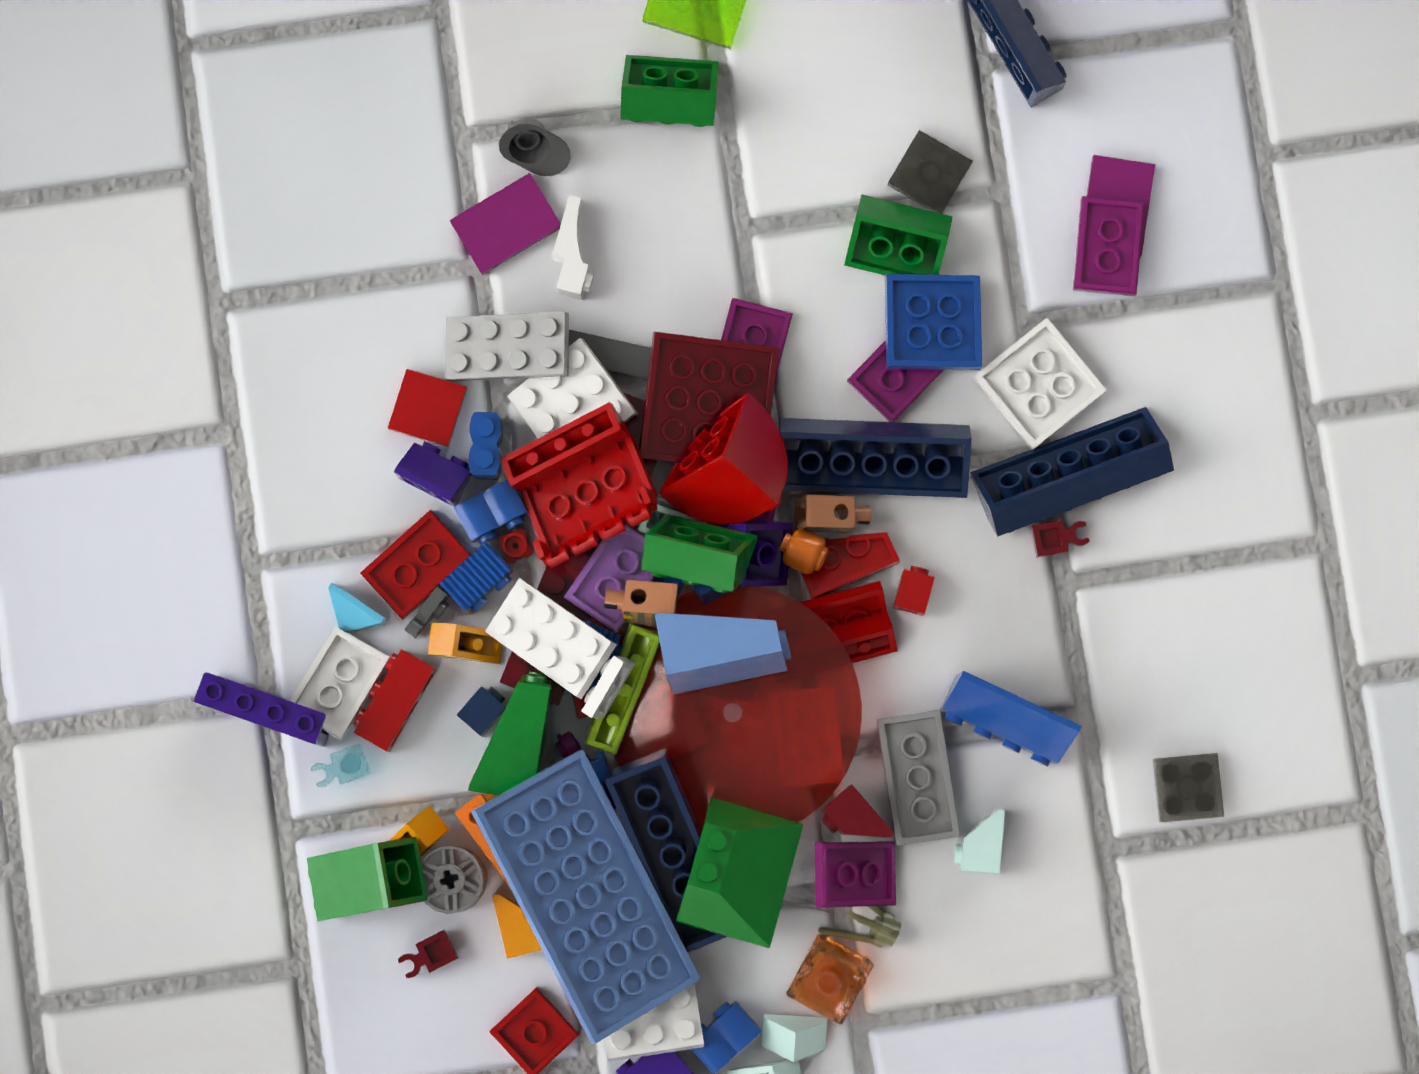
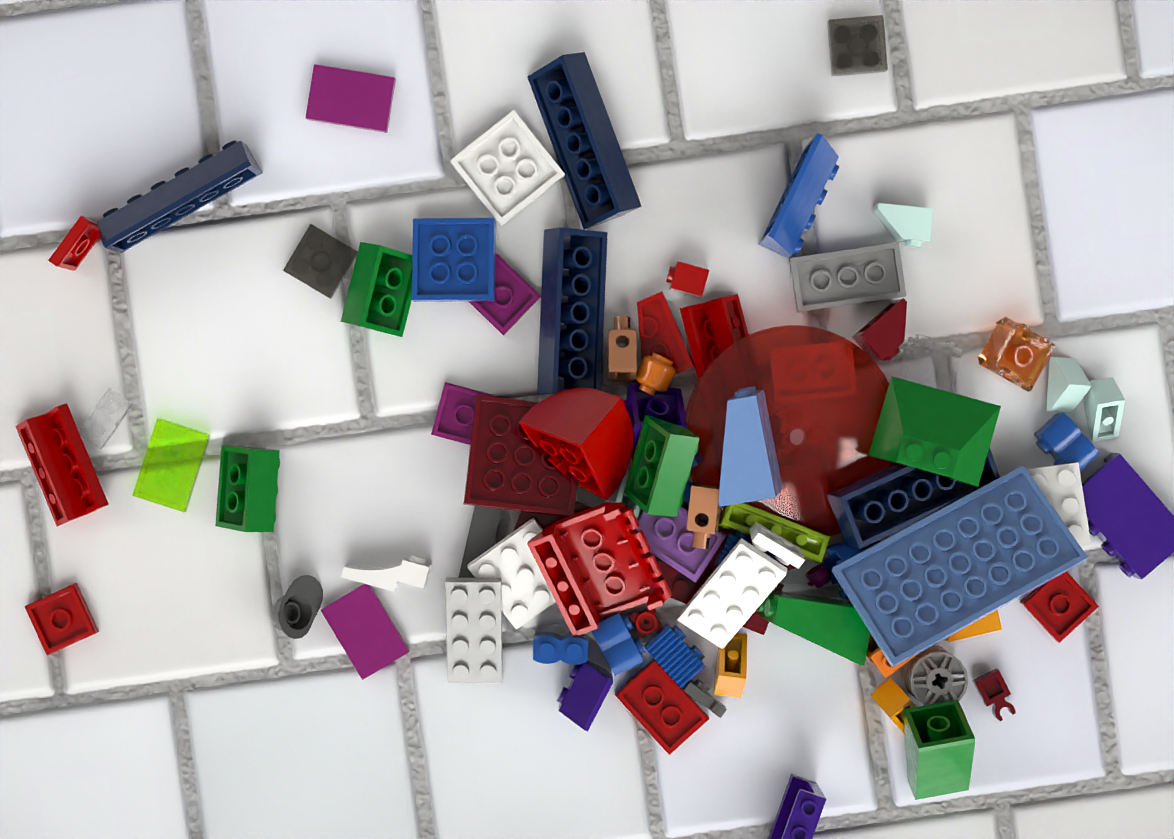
camera: 90 degrees left, 5 degrees up
(340, 680) = (764, 773): white plate -> none
(346, 765) = (834, 765): clear light blue plate -> none
(352, 613) = (702, 761): medium azure slope -> none
(393, 700) = (779, 725): red brick -> none
(427, 408) = (526, 697): red tile -> none
(483, 710) = (788, 649): dark blue brick -> none
(855, 874) = (934, 333): magenta tile -> none
(883, 929) = (977, 310): olive plant -> none
(1053, 537) = (642, 157): dark red plate -> none
(1108, 246) = (386, 105): magenta tile -> none

